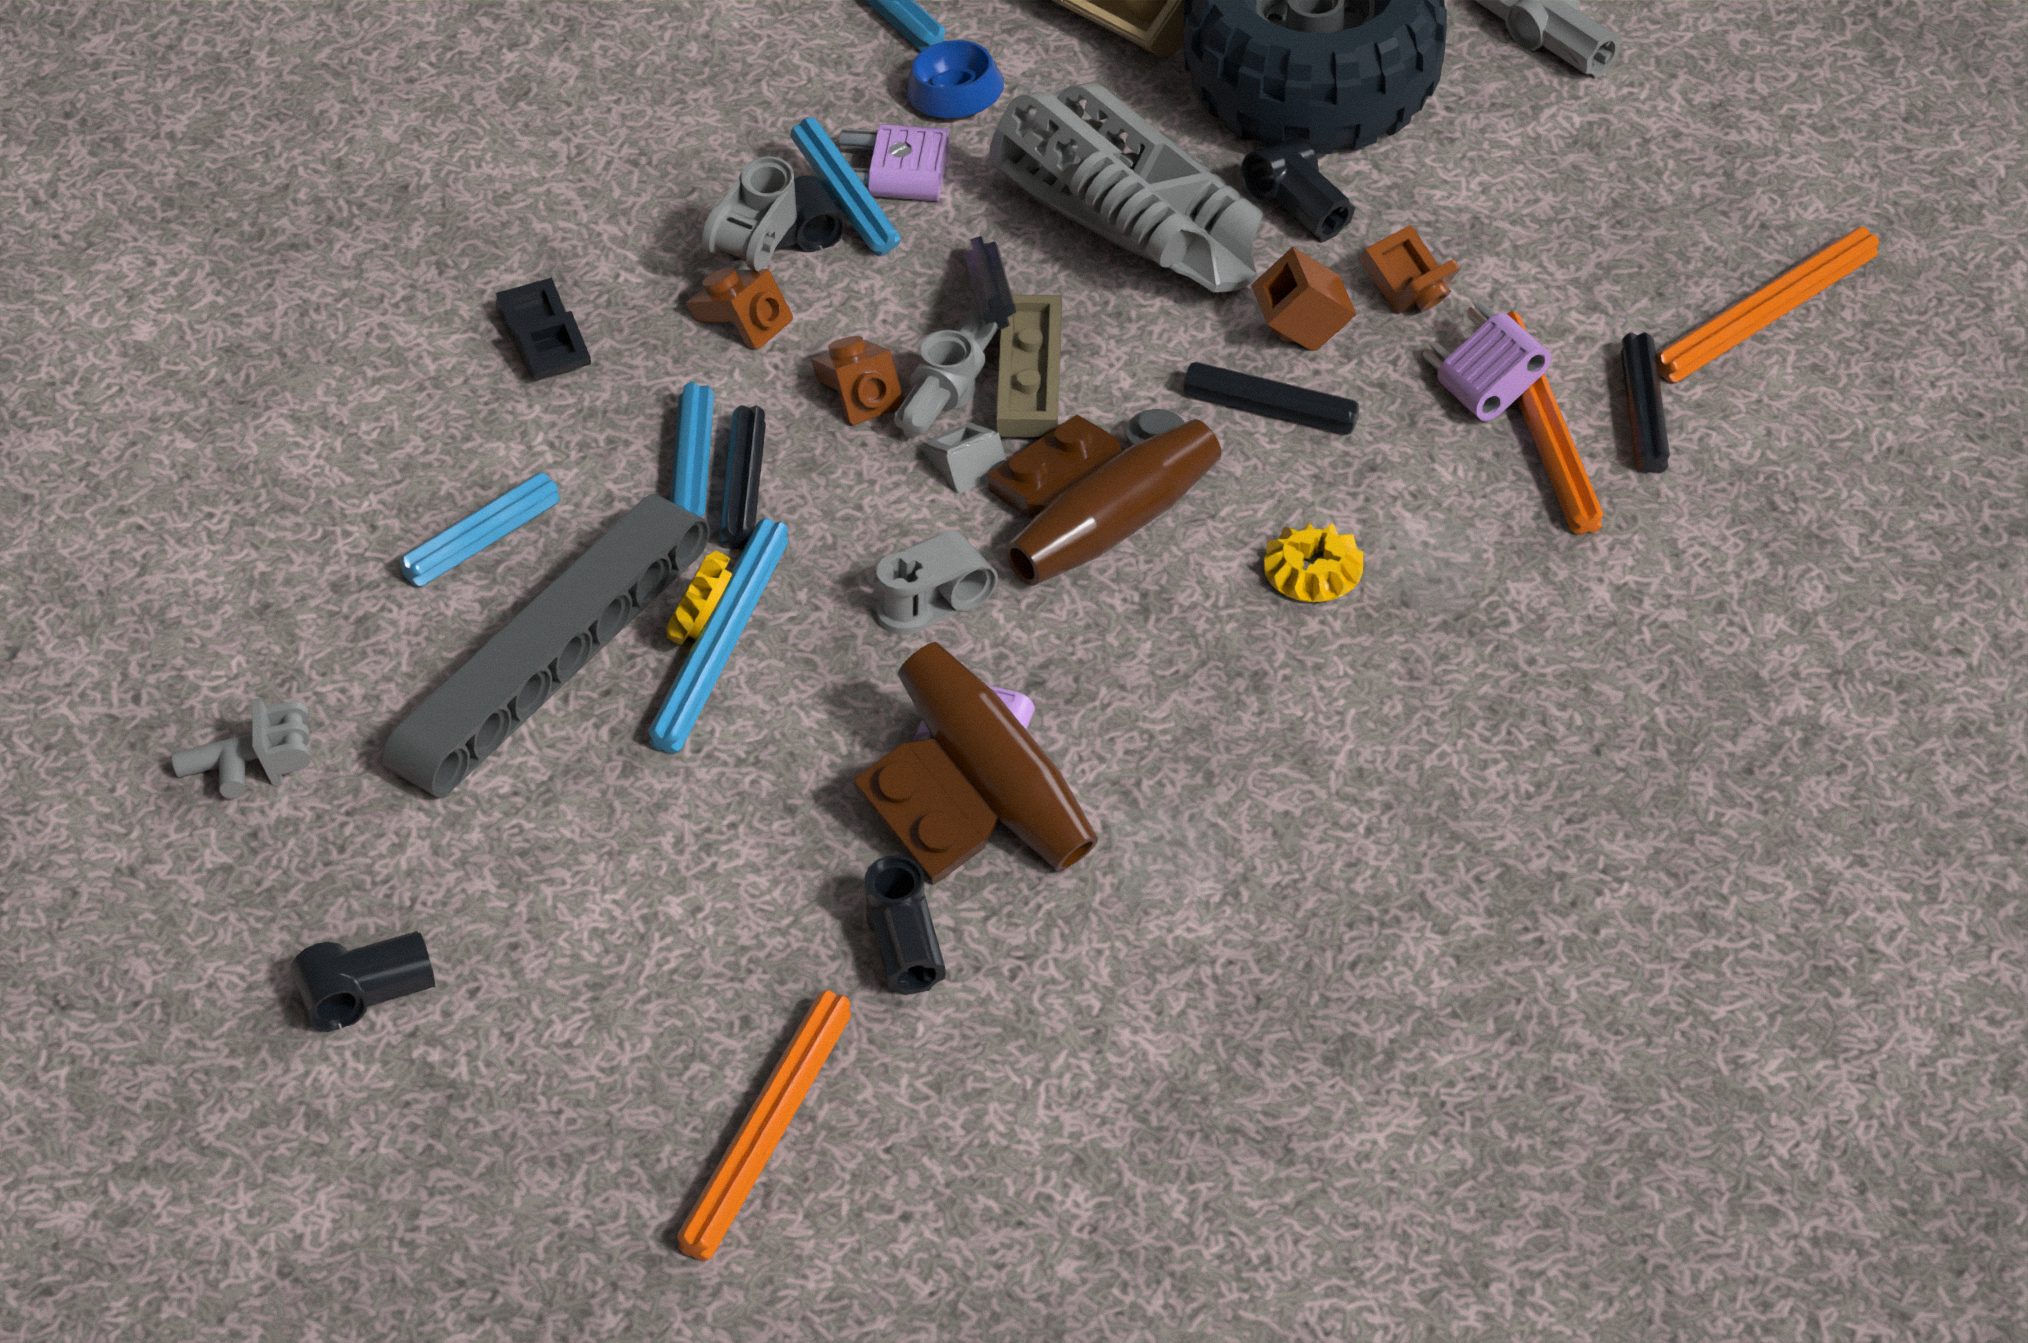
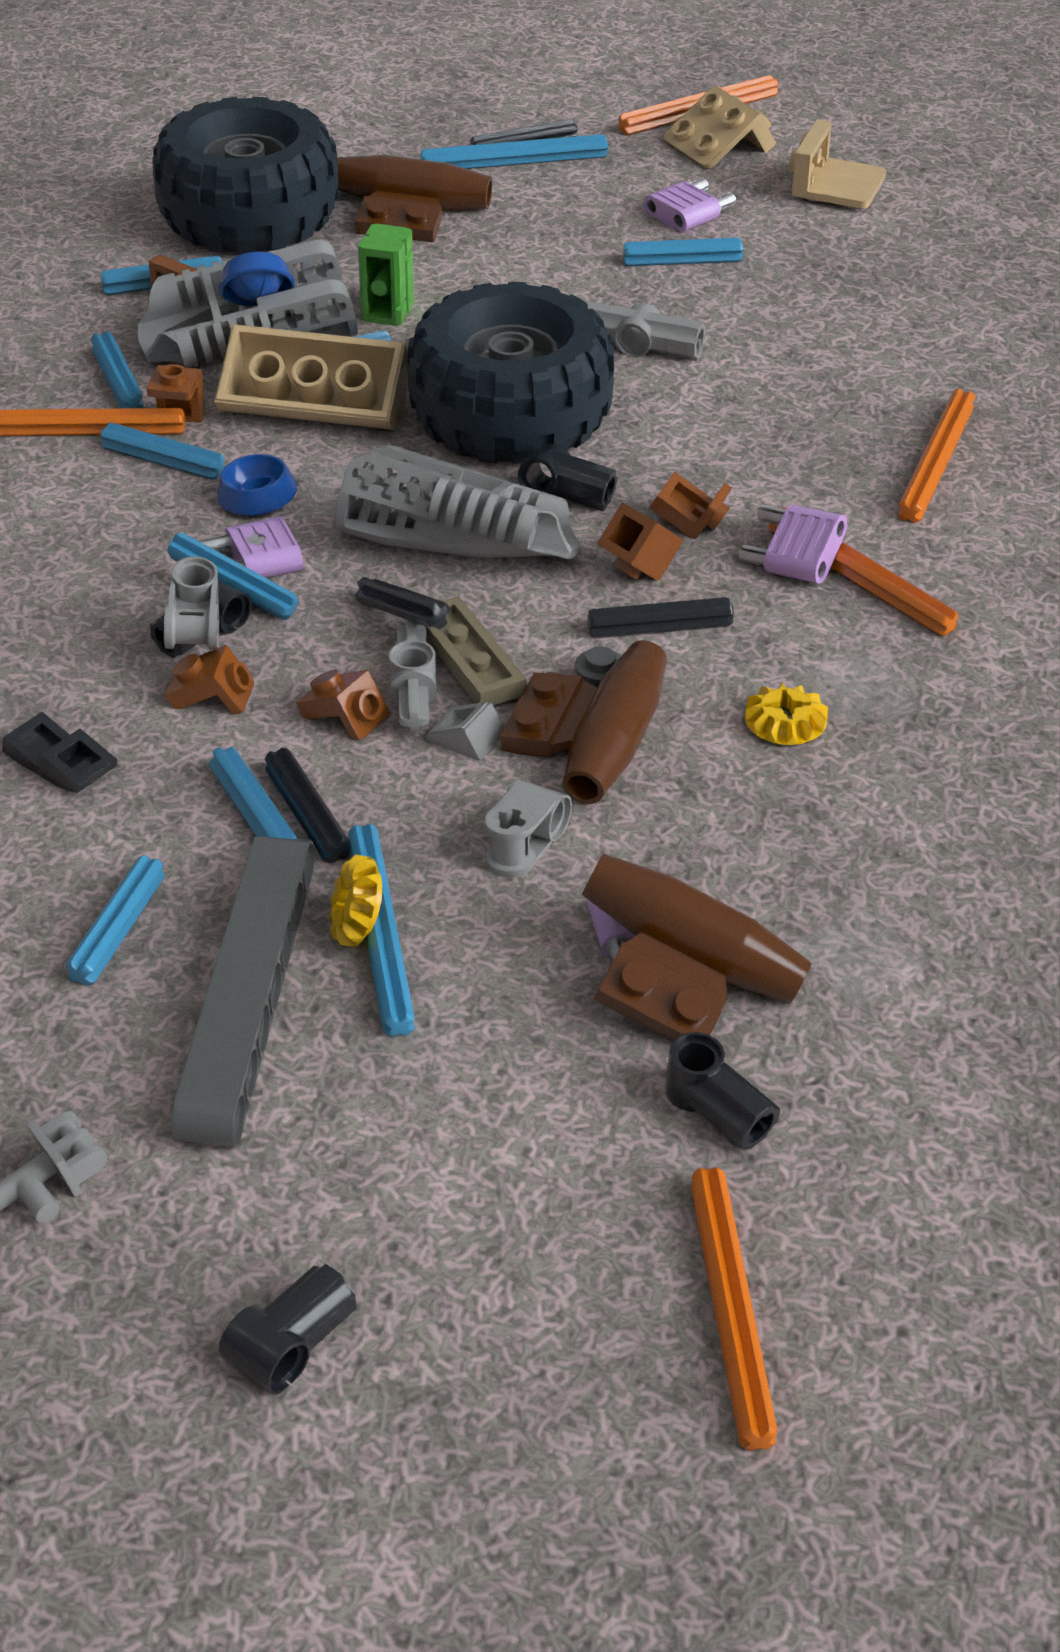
camera: 30 degrees left, 5 degrees down
(1645, 403) = (916, 537): black axle -> none

